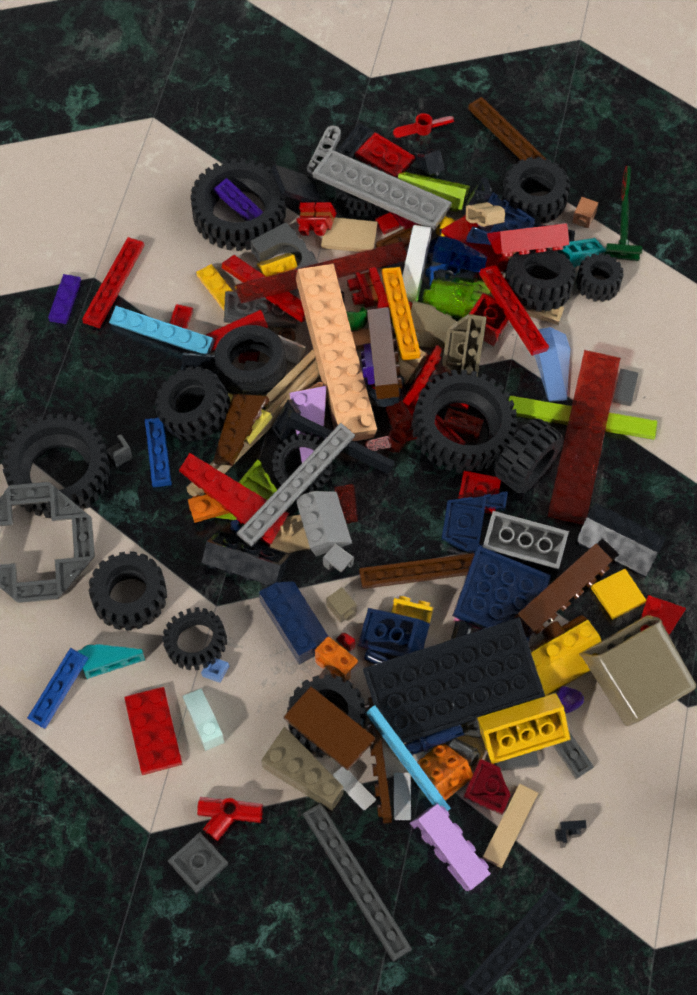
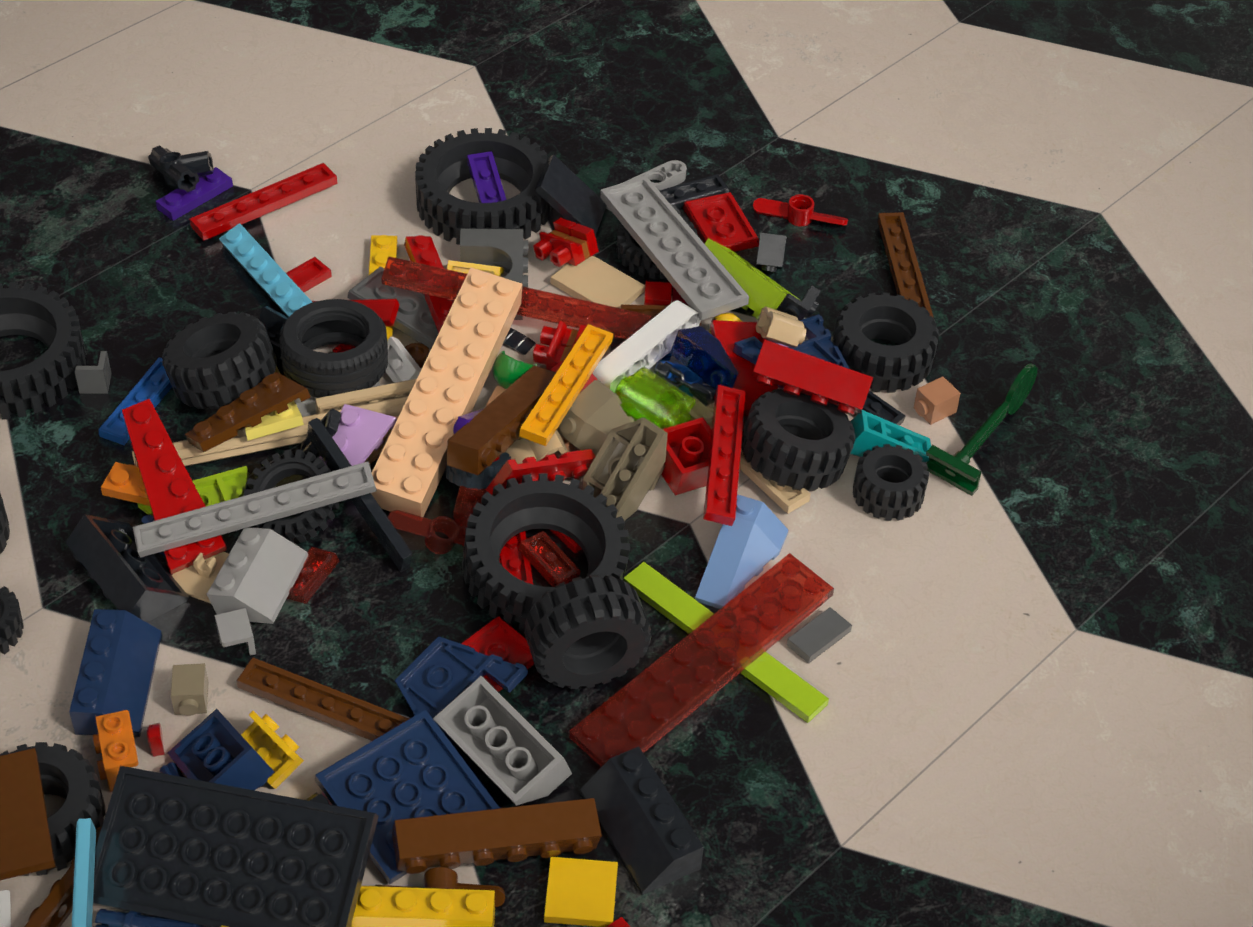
camera: 30 degrees right, 15 degrees down
(46, 289) = (181, 169): none -> black piece

